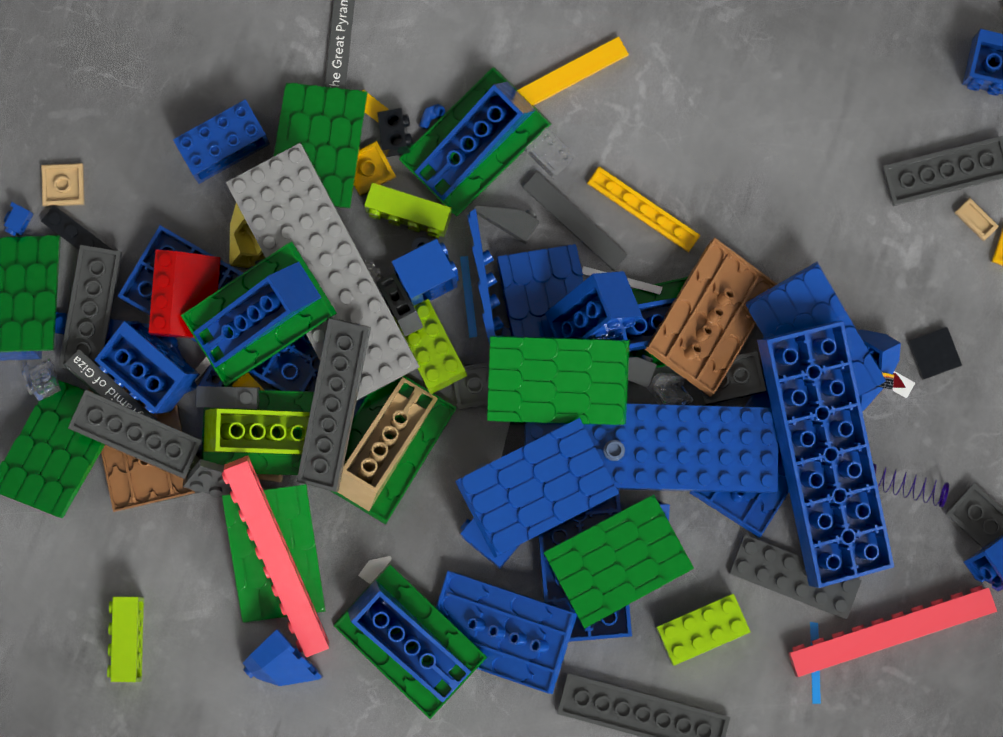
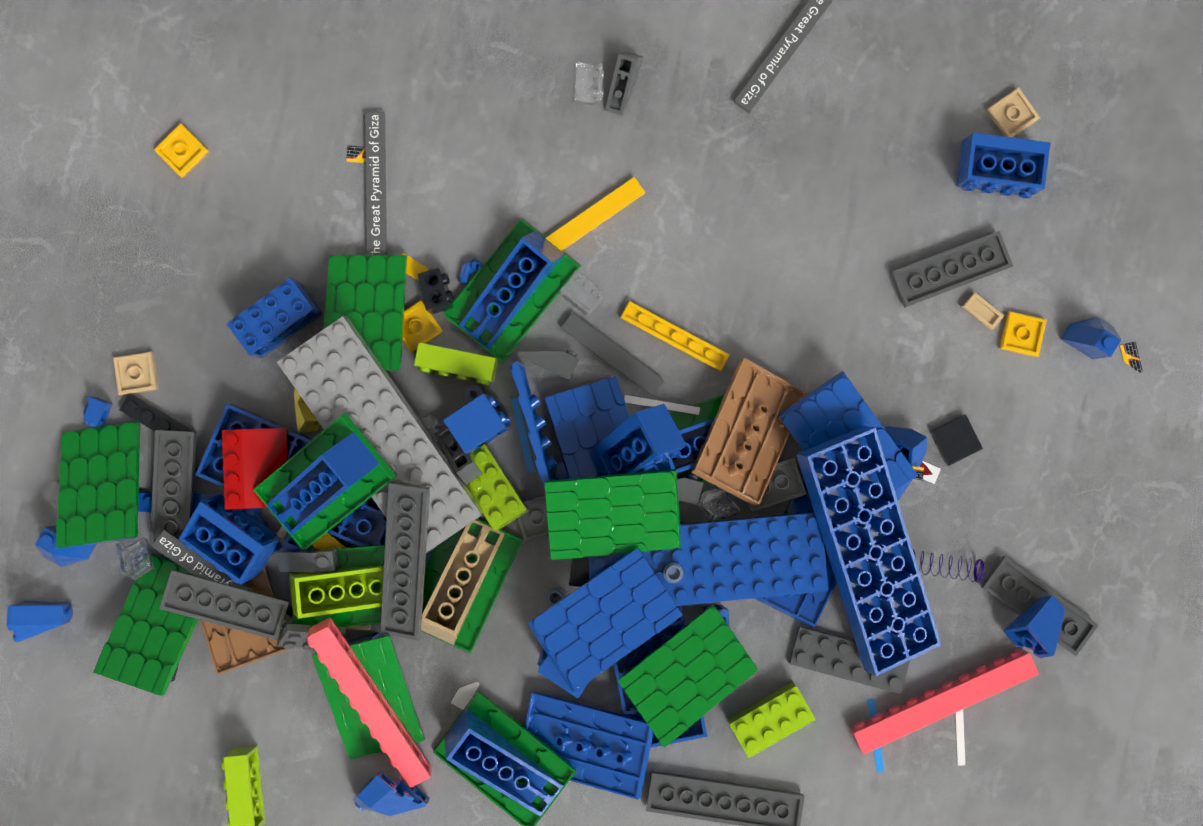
camera: 10 degrees left, 5 degrees up
(907, 673) = (960, 738): none -> white sticker

